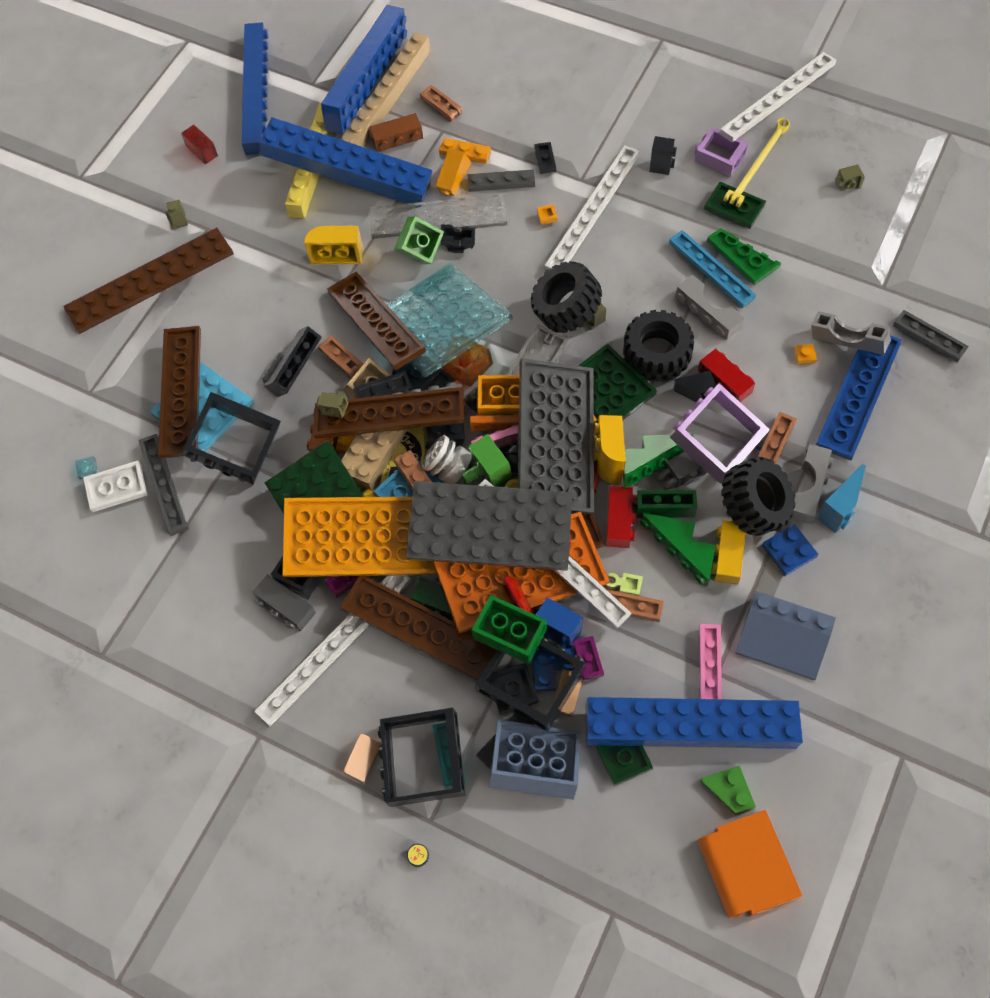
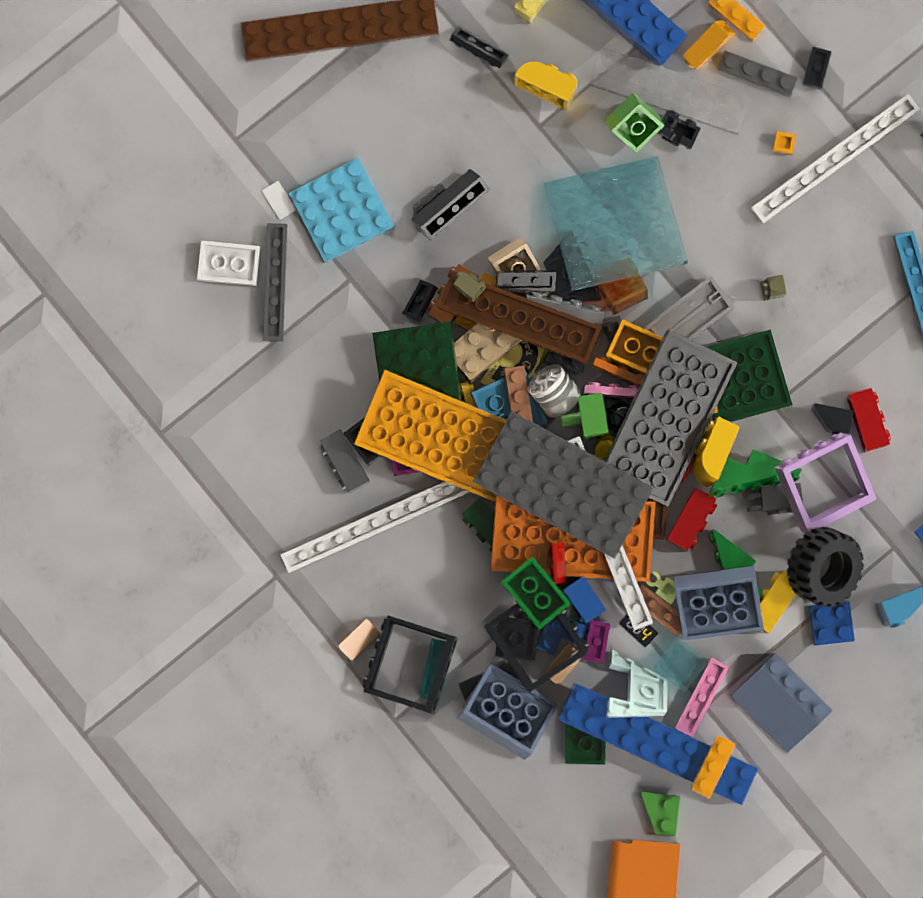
camera: 20 degrees right, 20 degrees up
(86, 467) = (207, 227): clear light blue plate -> none
(144, 422) = (278, 200): none -> white sticker
(179, 389) = (326, 188): reddish brown plate -> none
(243, 413) = (330, 287): black window -> none
(269, 247) = (479, 47): none -> black plate
(298, 443) = (420, 300): none -> black plate
(340, 356) = (500, 217): nougat plate -> none
(376, 321) = (551, 198): reddish brown plate -> none
(417, 627) = (456, 543): reddish brown plate -> none
(418, 855) = (372, 745): light yellow tile -> none
(577, 307) = (736, 249): black tyre -> none
(625, 633) = (643, 635): none -> black sticker
(655, 679) = (645, 690): none -> light aqua wing
(663, 326) = (837, 338): black tyre -> none
(667, 503) = (740, 528): dark green brick -> none
(675, 644) = (680, 664): none -> clear light blue plate
(682, 570) = (719, 603): none -> sand blue slope
(723, 321) = (898, 358): light grey arch -> none
(756, 716) = (713, 766): none -> light orange plate
(777, 437) = (875, 512): nougat plate -> none
(815, 464) = (903, 551): light grey arch -> none

